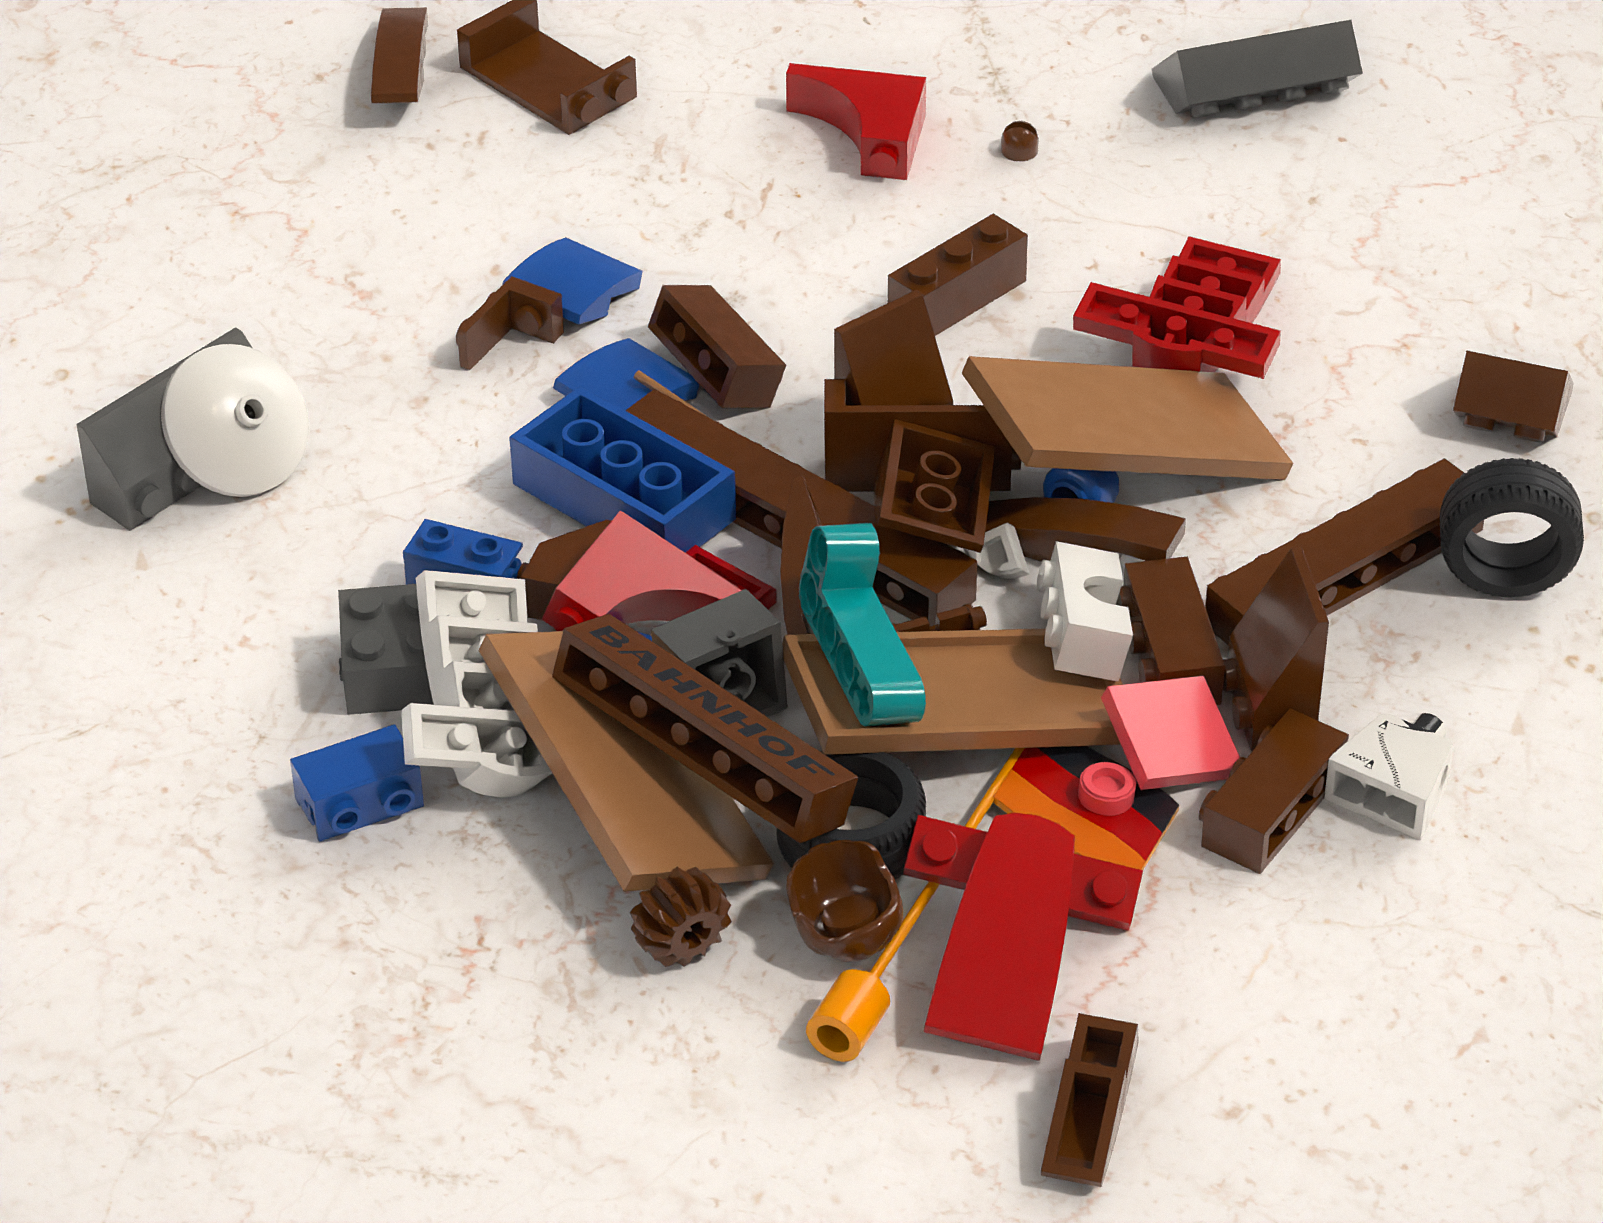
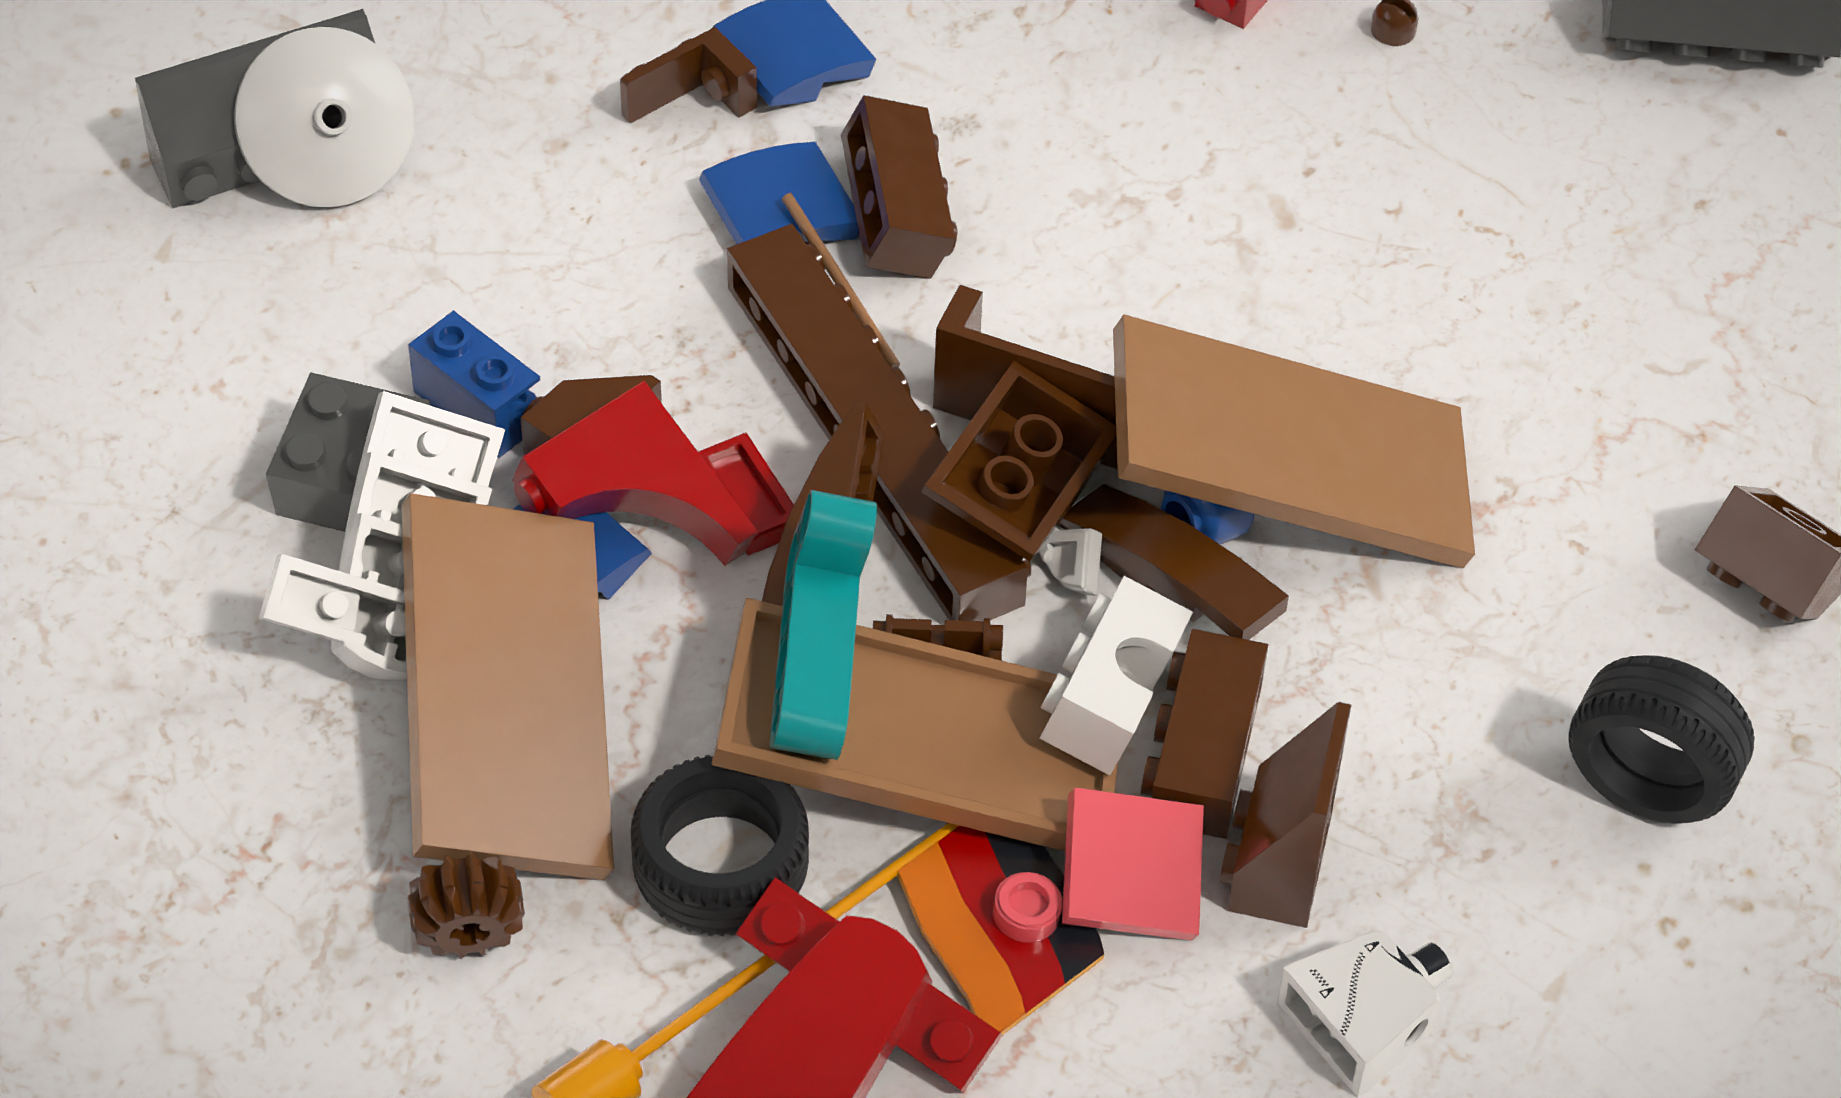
camera: 20 degrees right, 10 degrees up
(356, 783) = (214, 610): blue hinge -> none
(603, 460) = (702, 325): blue brick -> none
(705, 727) = (587, 692): reddish brown brick -> none
(734, 646) = (668, 608): dark grey brick -> none
(844, 900) = (647, 952): reddish brown piece -> none
(891, 356) = (1050, 289): reddish brown slope -> none
(965, 271) = (1216, 183): reddish brown brick -> none
(1195, 313) = (1462, 319): red slope -> none
(1270, 791) = (1207, 978): reddish brown brick -> none
(1350, 551) = (1460, 698): reddish brown brick -> none

